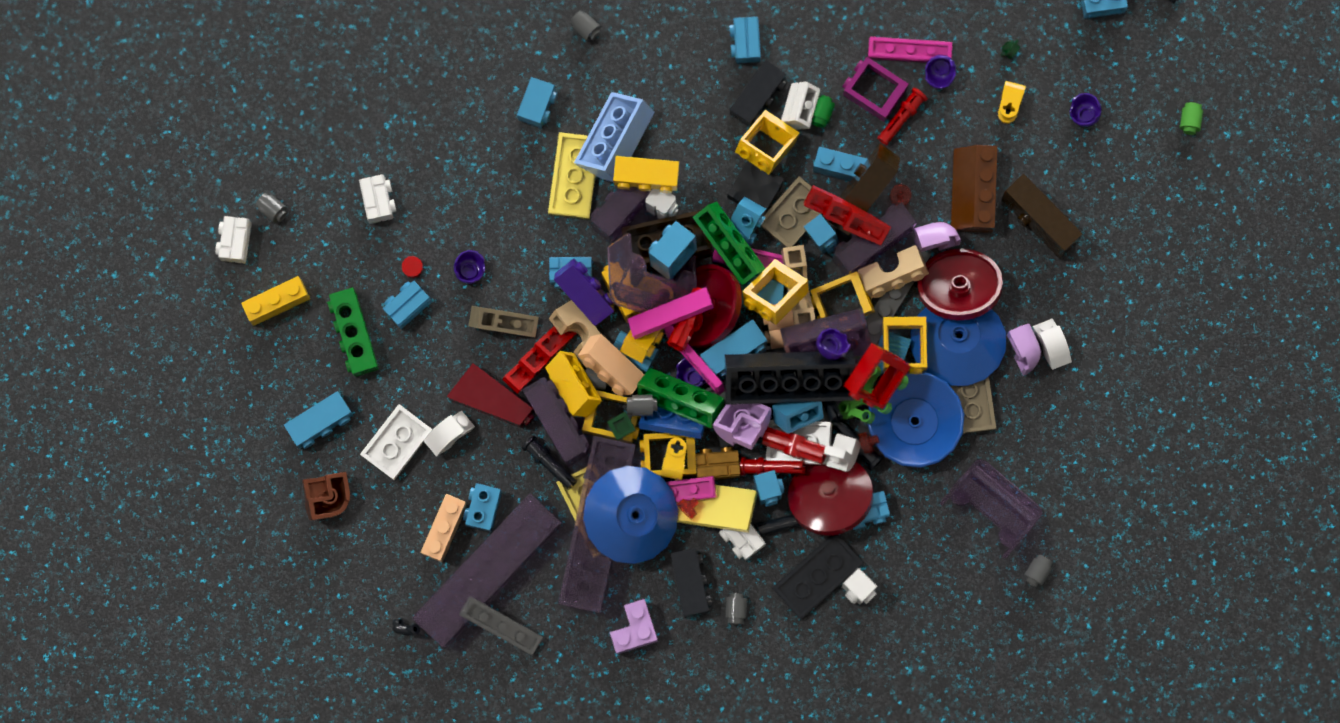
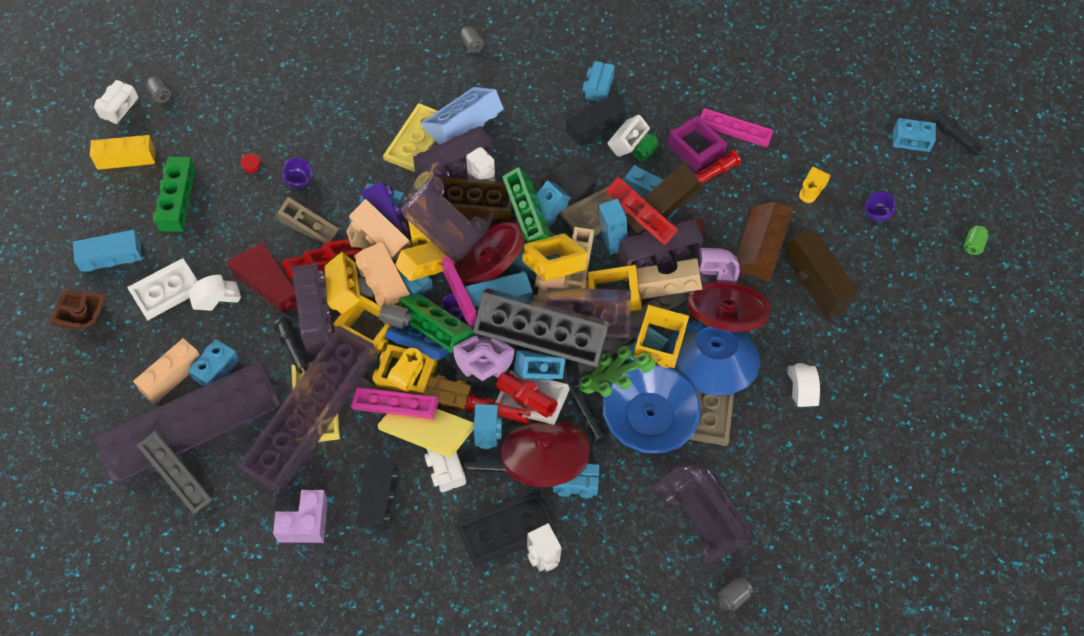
camera: 10 degrees right, 20 degrees down
(376, 198) = (246, 106): white brick -> none
(406, 304) = (230, 186): dark azure brick -> none
(409, 630) = (85, 449): black arm -> none
(537, 102) = (408, 75): dark azure brick -> none
(589, 316) = (378, 229): none -> light nougat brick
(610, 512) = (340, 427): blue dish -> none
(621, 426) = (369, 328): dark green plate -> none
(646, 174) = (475, 132): yellow brick -> none
(670, 313) = (451, 240): dark pink tile -> none
(672, 250) = (475, 193): dark azure brick -> none
(684, 329) = (466, 253): red piece -> none
(688, 507) = (402, 417): clear red tile -> none
(736, 609) = (412, 533): dark grey brick -> none
(768, 124) = (593, 140): yellow window -> none
(832, 344) = (591, 304): dark purple hair -> none
(843, 453) = (570, 413): white brick -> none
(867, 442) = (597, 412): clear red tile -> none
(887, 384) = (636, 358): red window -> none
(940, 71) = (758, 144): dark purple hair -> none
(1010, 48) = (823, 147): dark green plate -> none
(1026, 348) = (777, 378): lavender brick -> none

